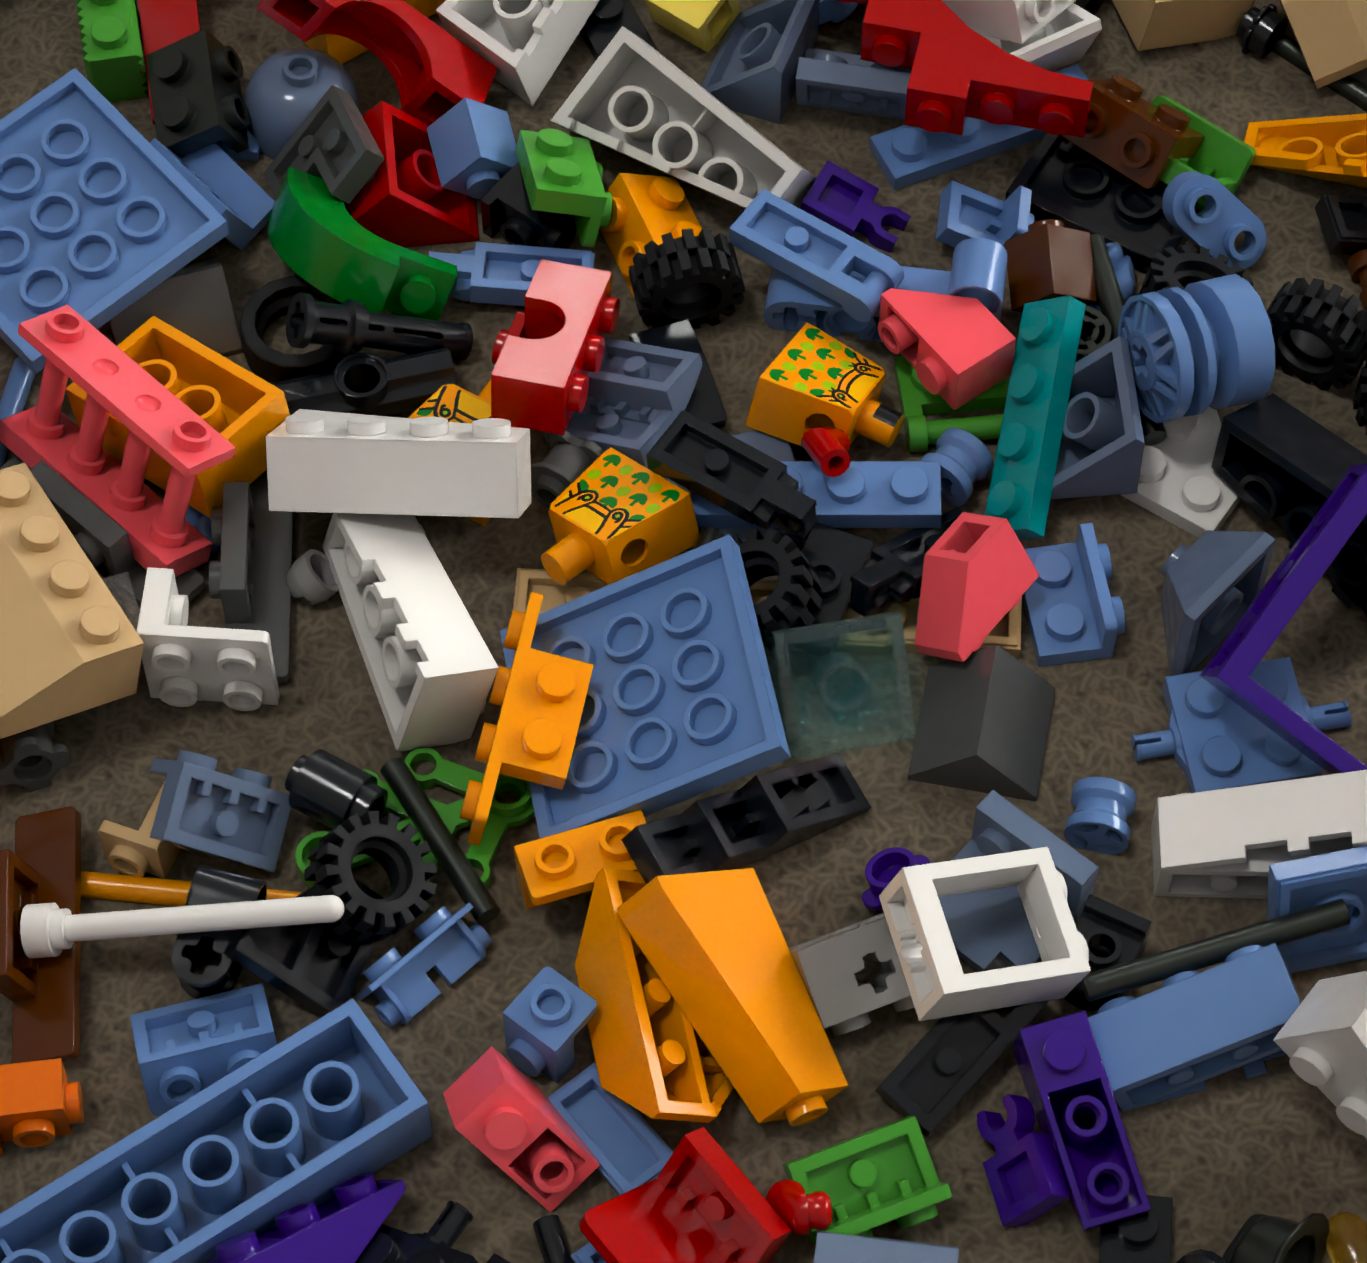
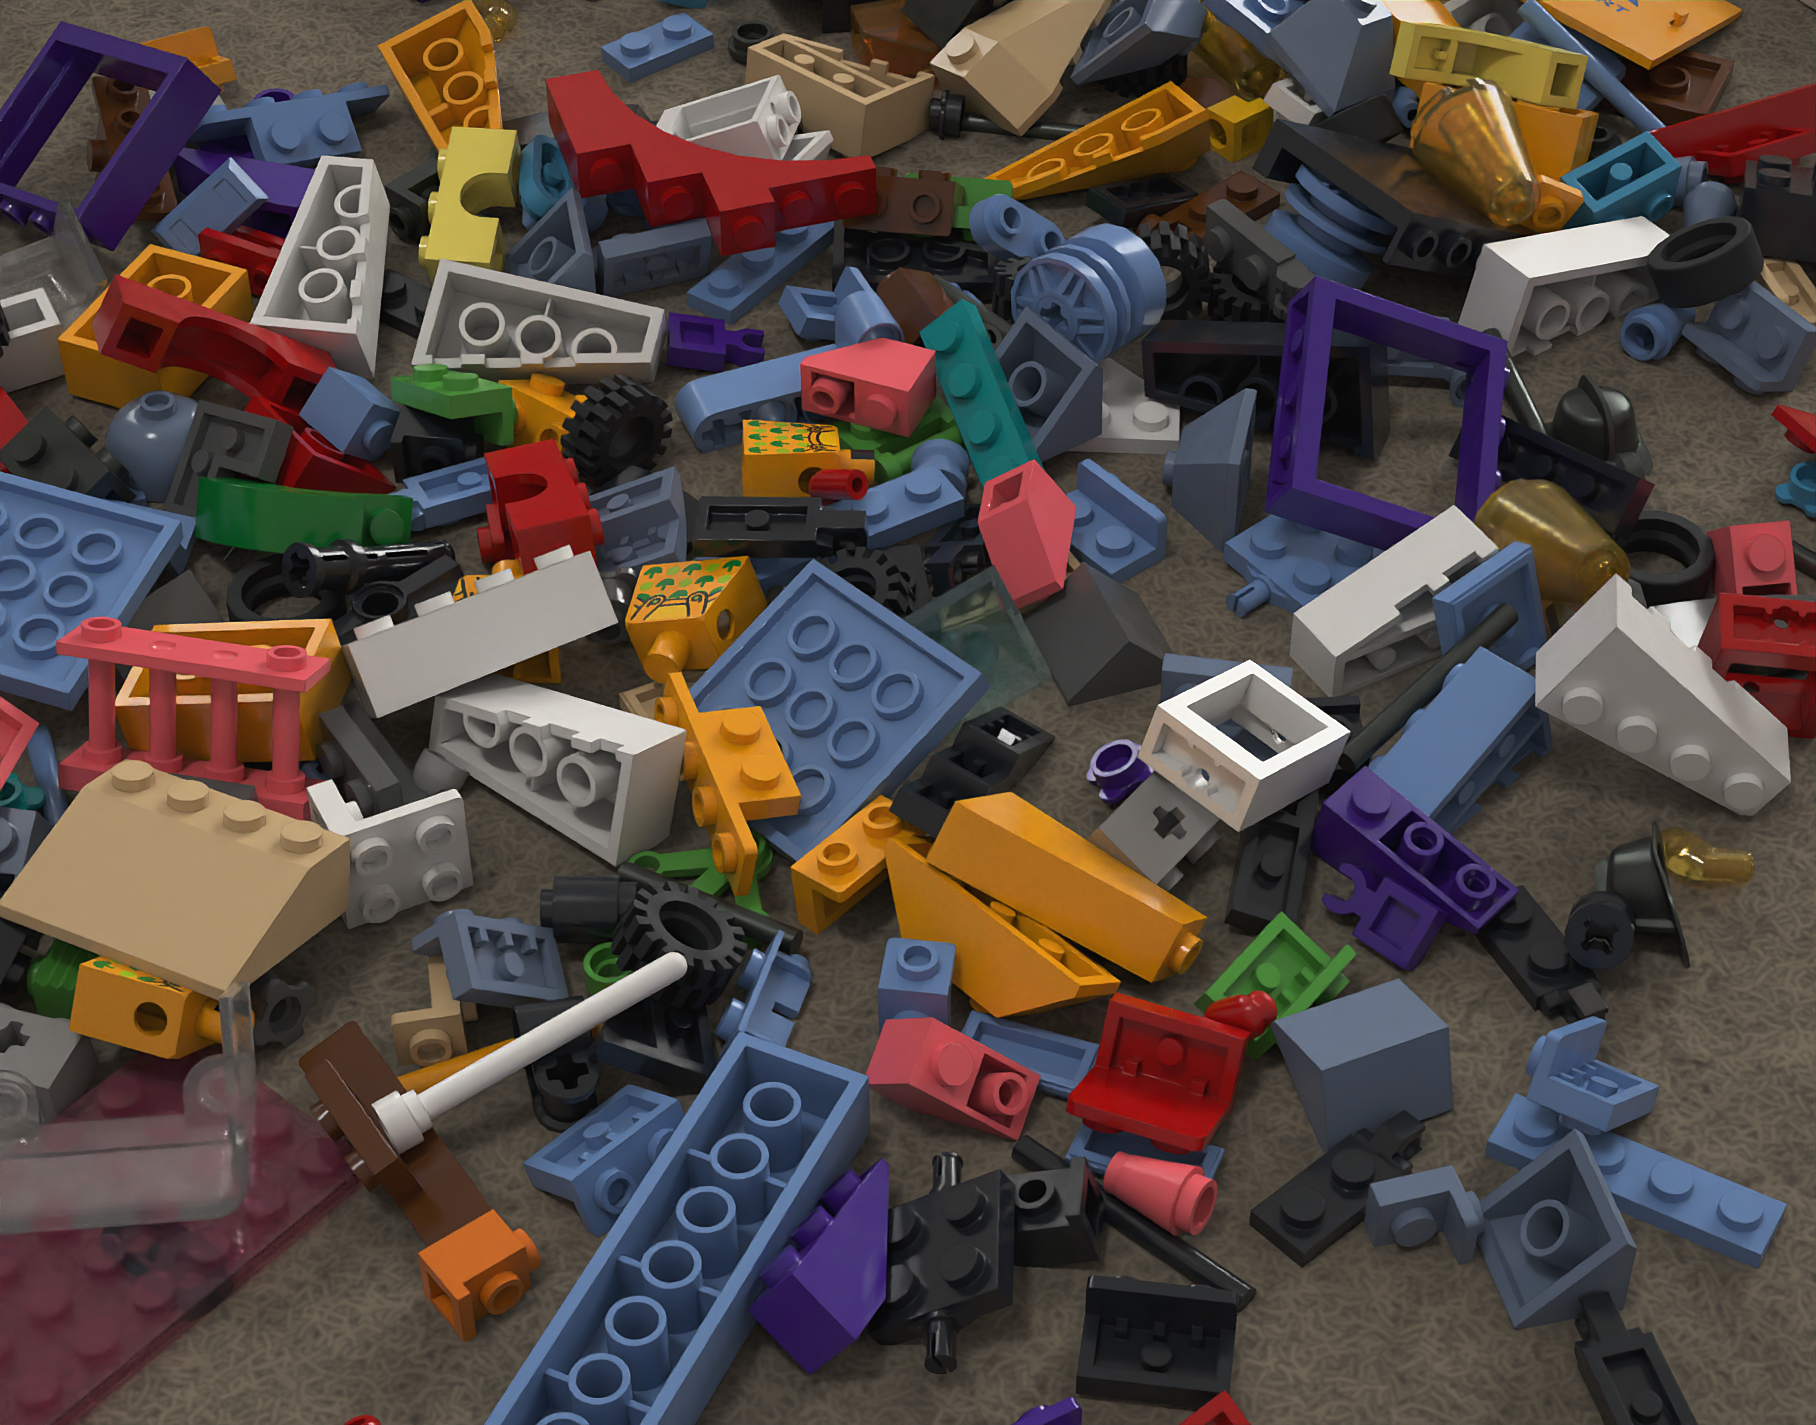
camera: 30 degrees left, 15 degrees down
(815, 254) = (720, 365): medium blue plate -> none
(1100, 815) = (1249, 640): medium blue wheel -> none

